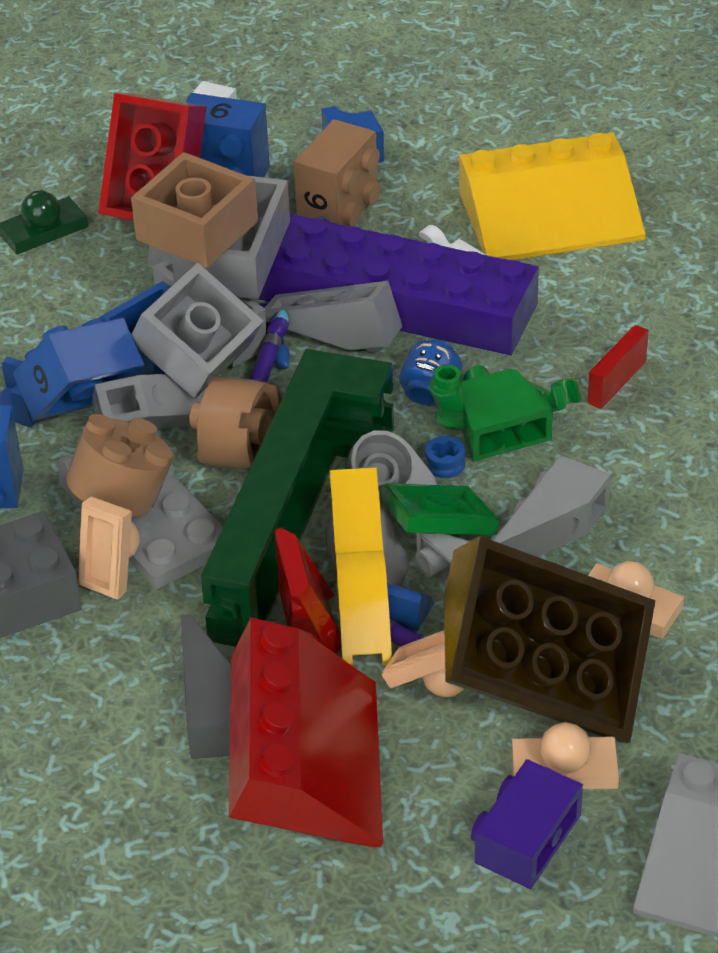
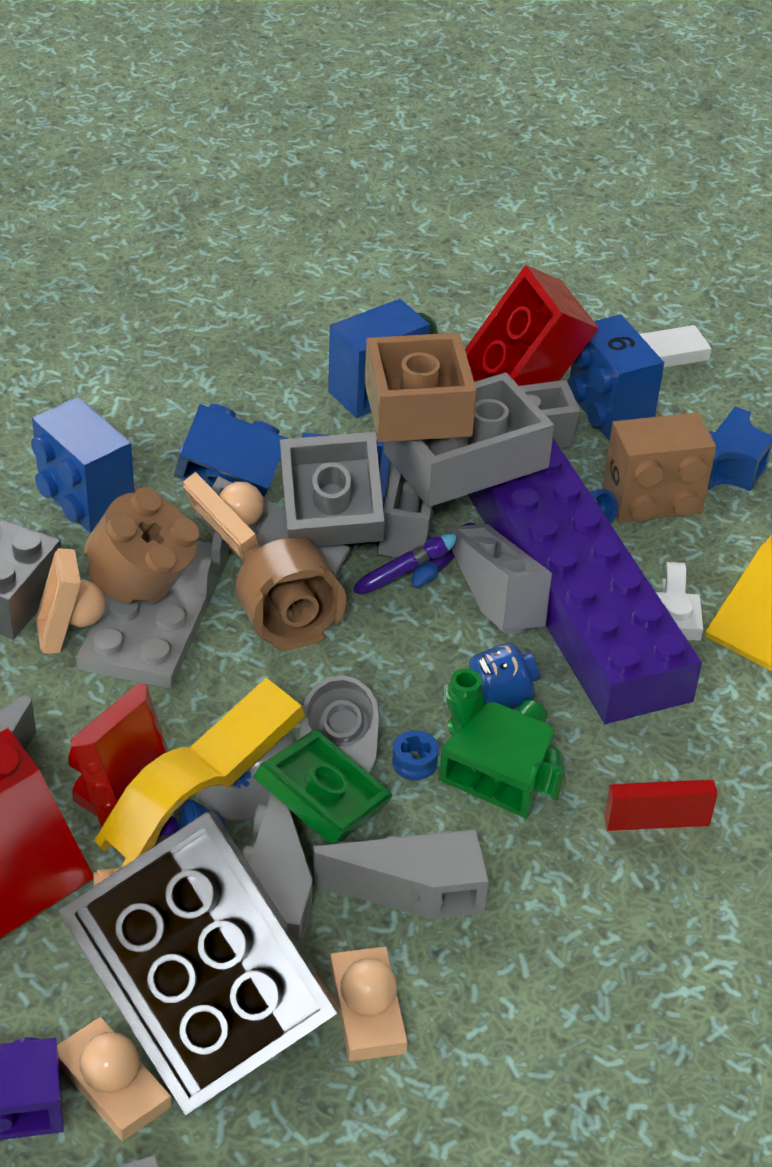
camera: 45 degrees right, 0 degrees up
(50, 241) = (348, 349): none -> blue brick
(145, 397) = (230, 512): none -> light nougat tile
(320, 417) = (207, 668): dark green brick -> none

